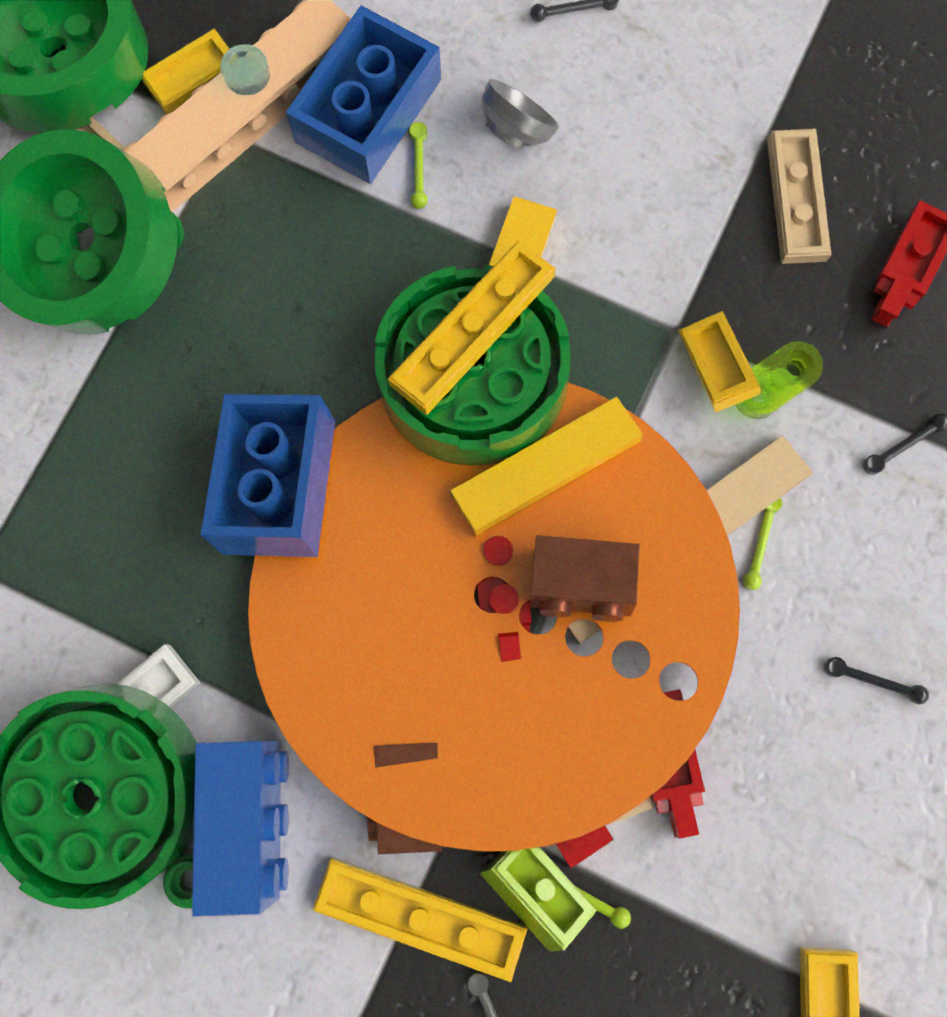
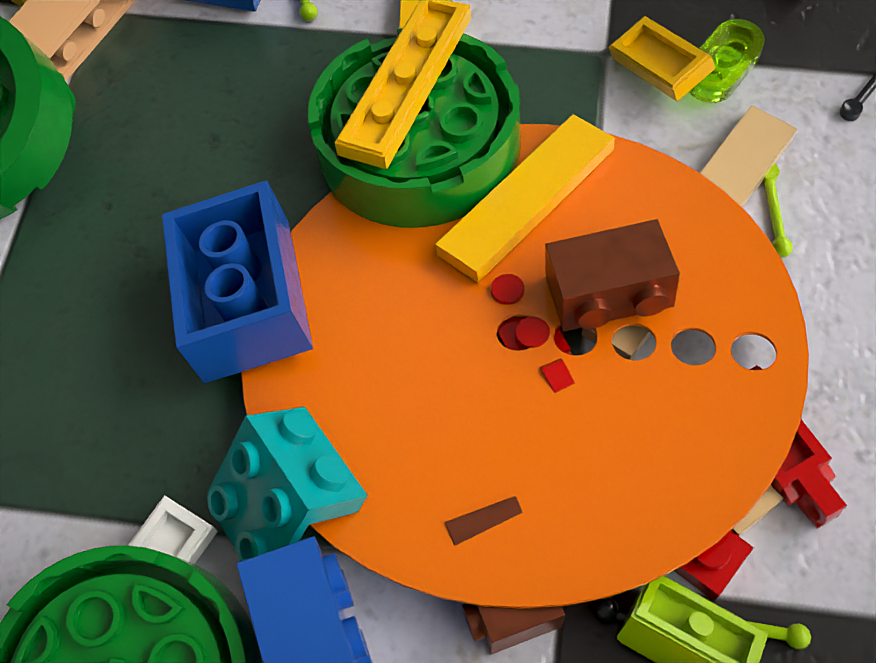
camera: 15 degrees left, 15 degrees down
(256, 672) = (279, 482): none -> teal bracket

